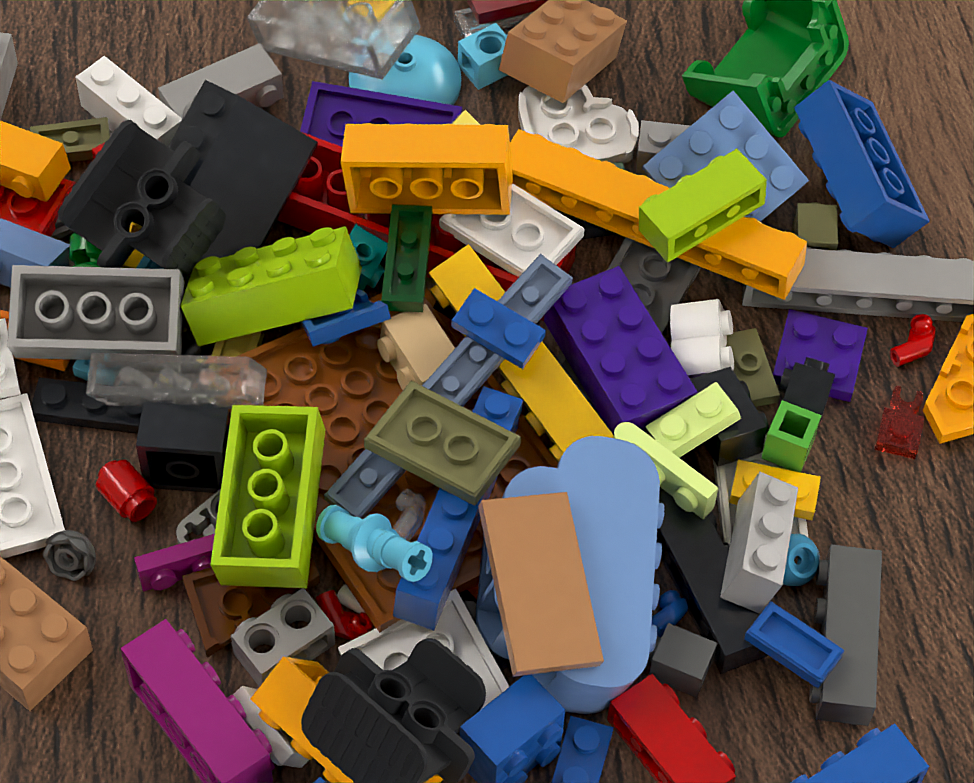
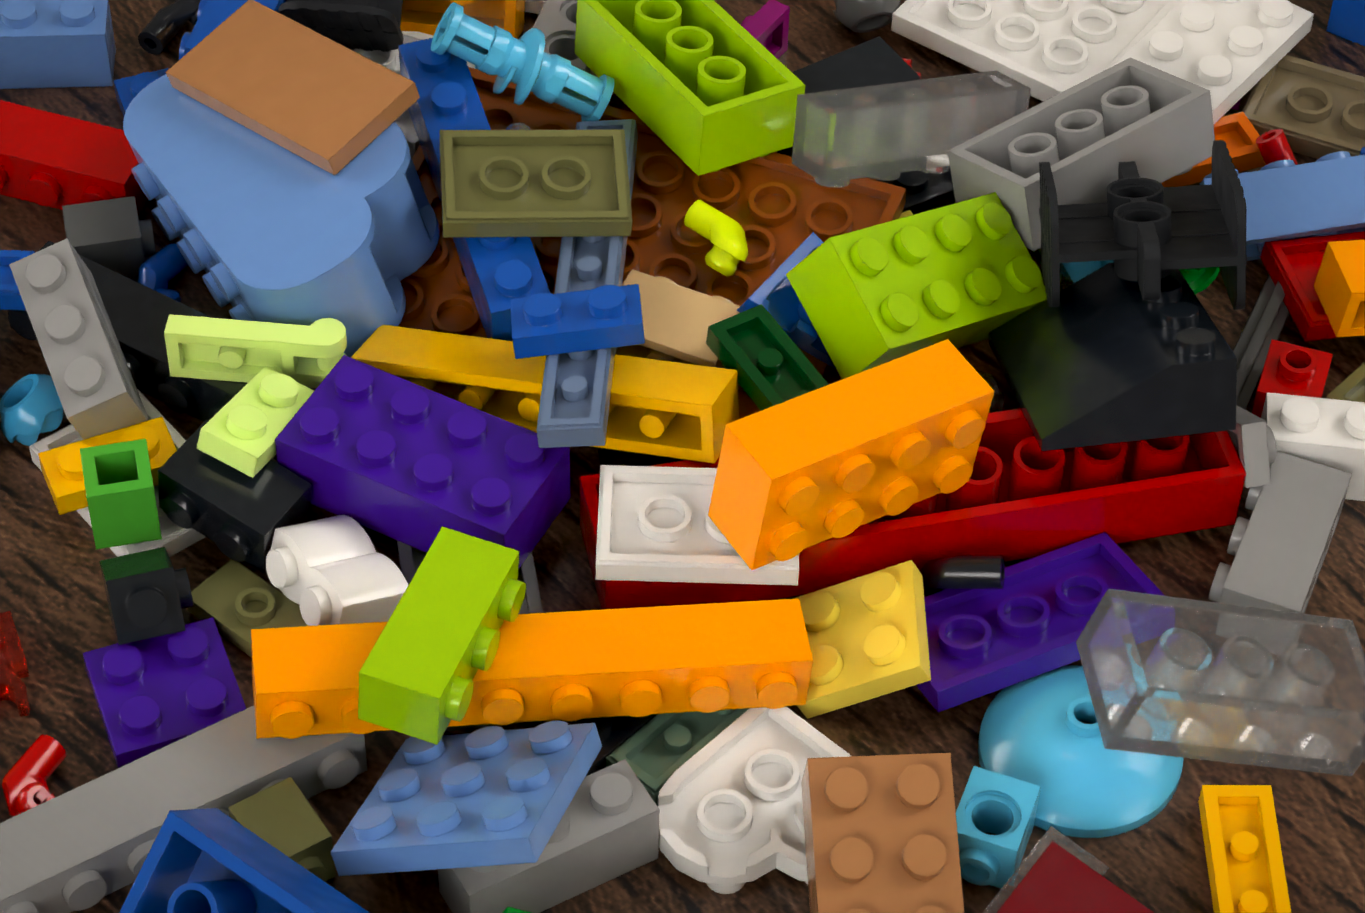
camera: 145 degrees right, 10 degrees down
(341, 390) = (723, 232): none -> neon yellow arm

